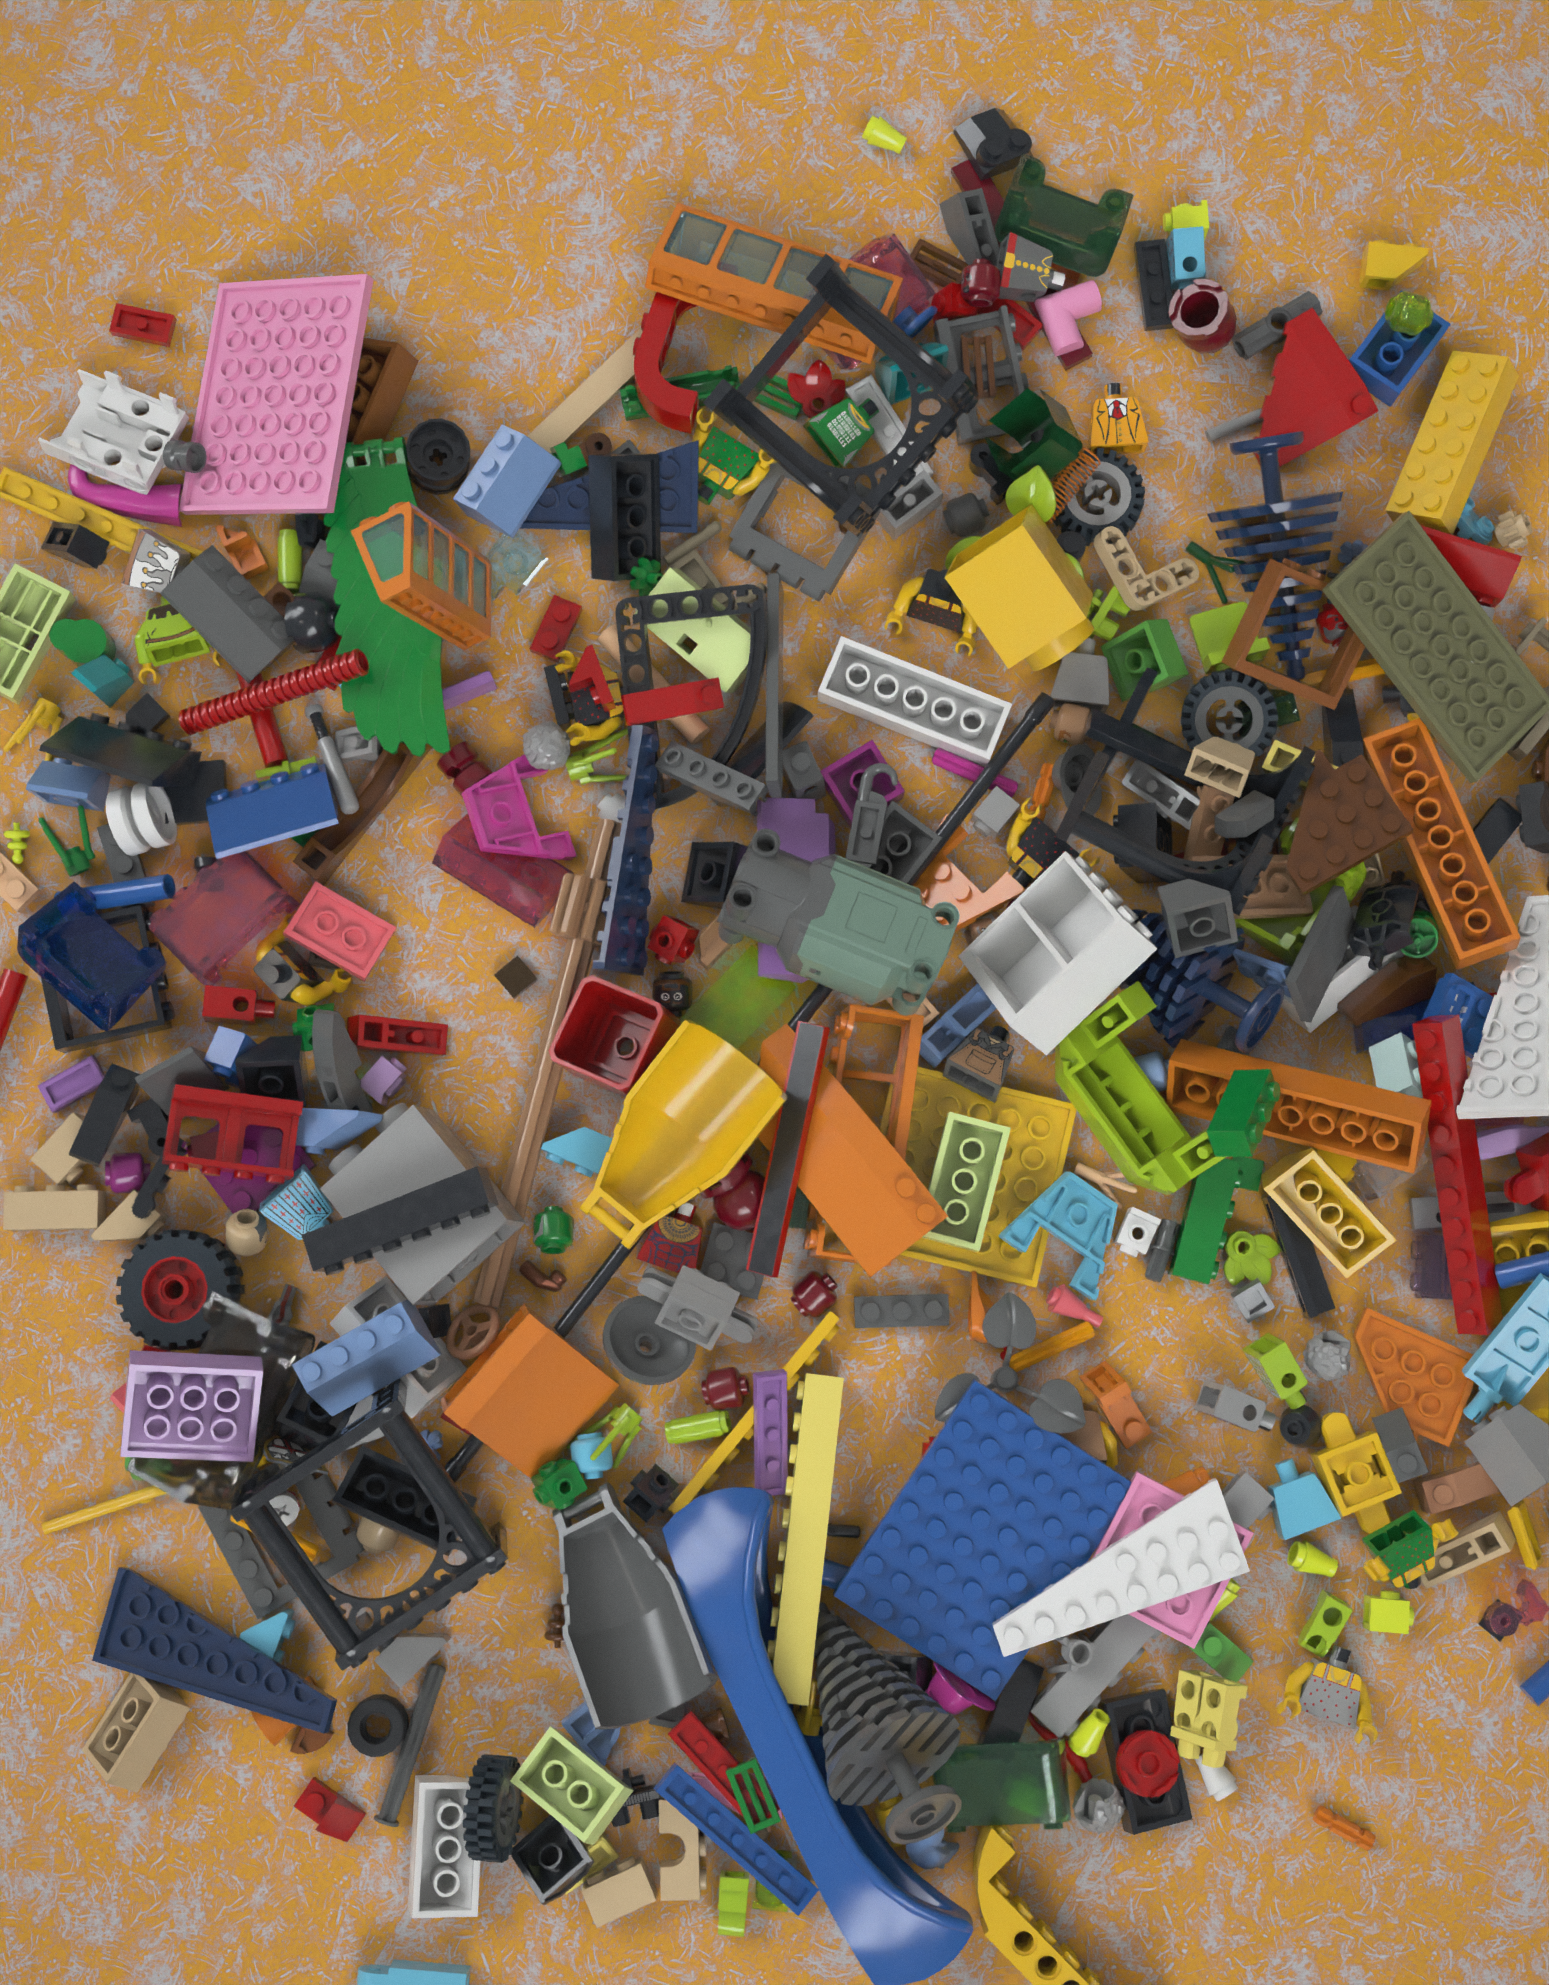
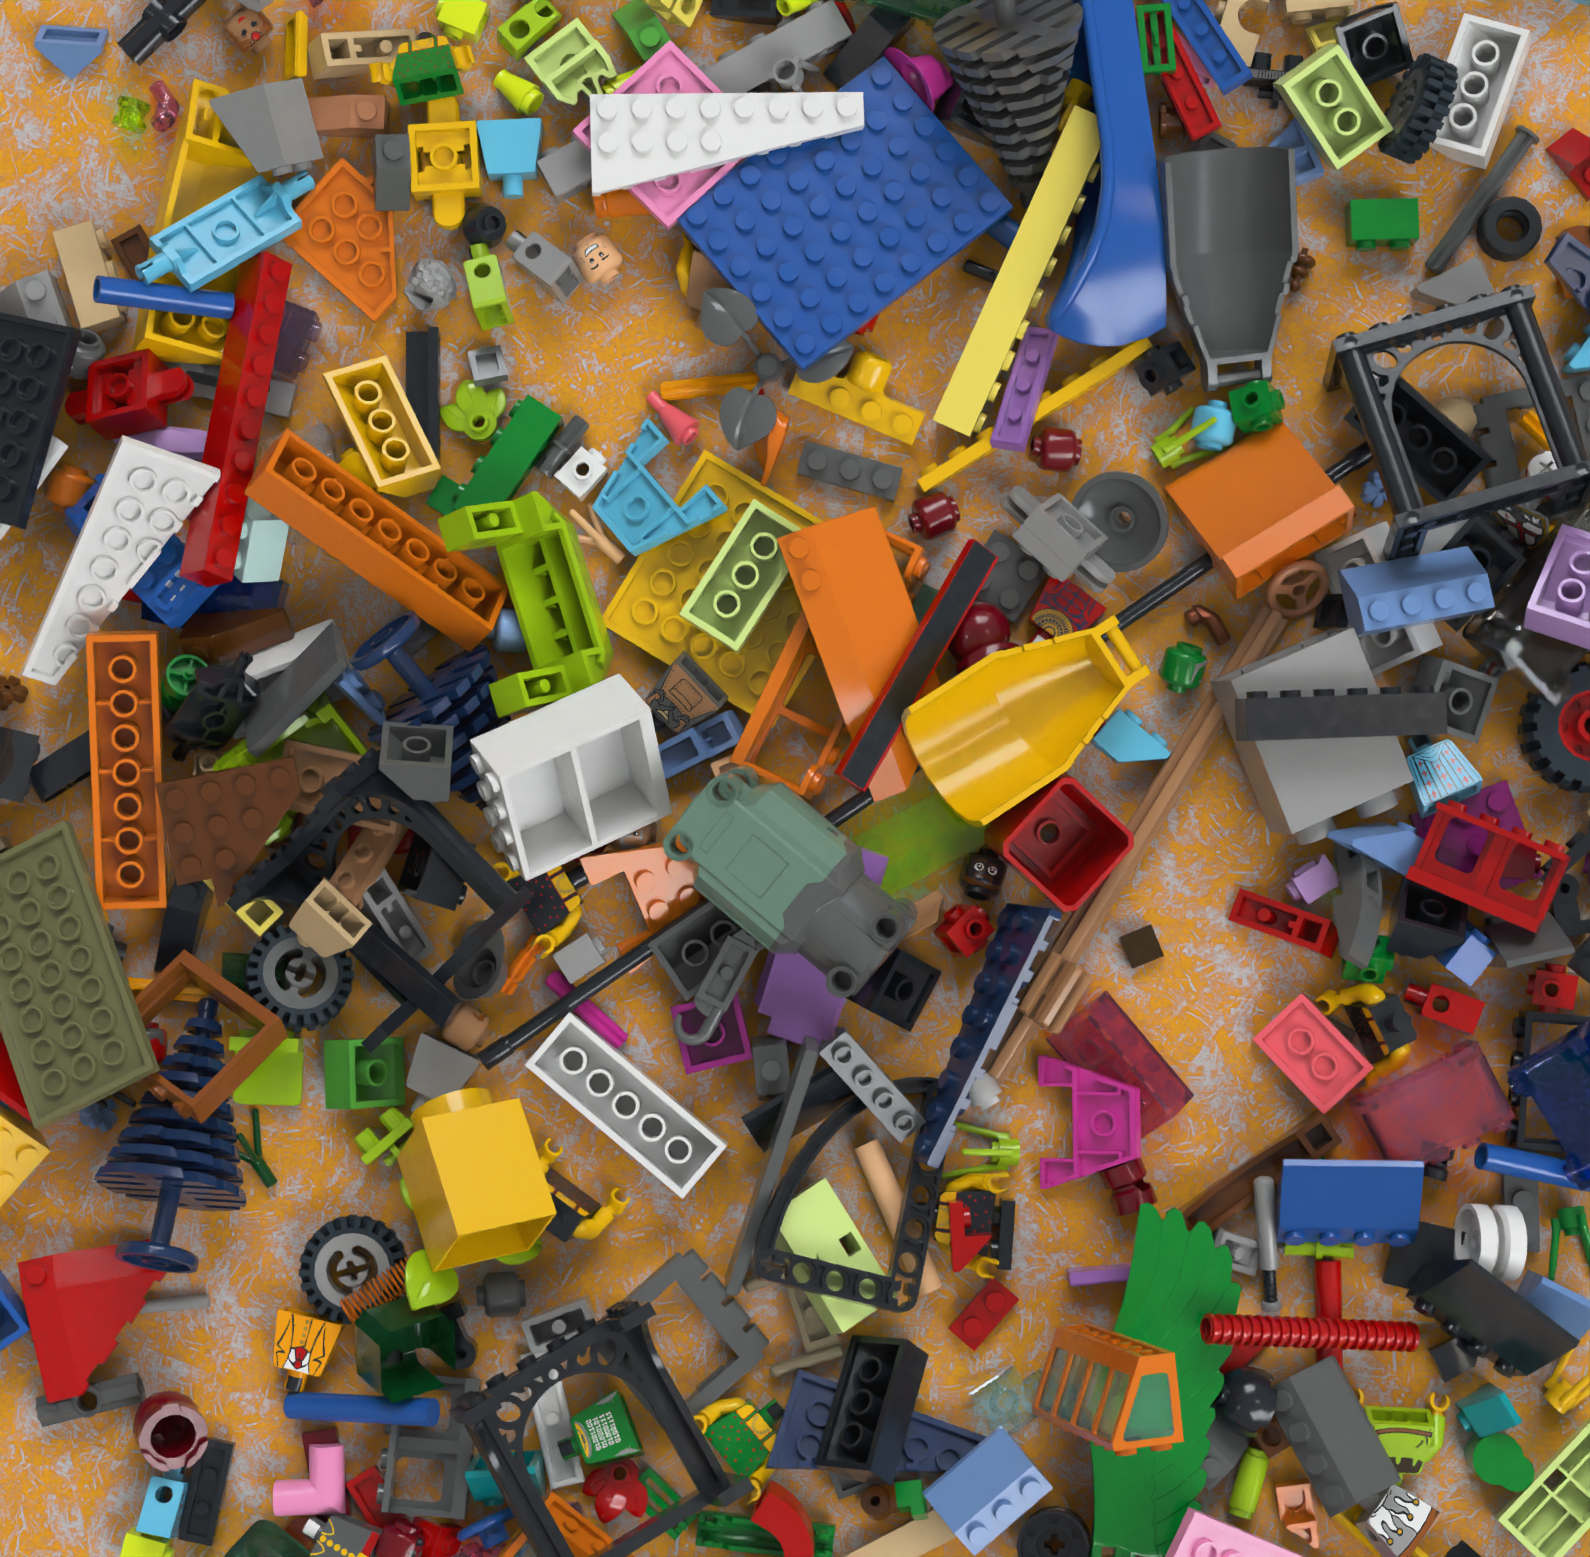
camera: 165 degrees left, 5 degrees up
(146, 1041) = (1565, 981): none -> red brick
(246, 1232) = (1502, 765): tan head -> none
(299, 1286) = (1467, 694): none -> dark grey slope
(309, 530) = (1218, 1504): black slope -> none
(495, 1692) = (1382, 223): none -> green brick
(546, 746) = (1034, 1181): light grey piece -> none
(646, 576) = (868, 1334): green plant -> none
(672, 701) = (885, 1183): red slope -> none
(698, 1427) = (1096, 419): lime piece -> none
(911, 1378) = (863, 398): none -> yellow plate
(976, 341) = (426, 1483): reddish brown tile -> none
(1052, 383) = (361, 1408): none -> blue piece
(1073, 544) = (401, 1220): black brick -> none
(1116, 1403) = (663, 307): orange bracket -> none
(1137, 580) = (343, 1158): tan beam -> none
(1189, 1428) = (597, 258): none -> light nougat head
(1243, 1113) = (440, 542): green brick -> none
(1245, 815) = (323, 859): dark grey piece -> none
(1273, 1600) = (571, 63): none -> yellowish green plate

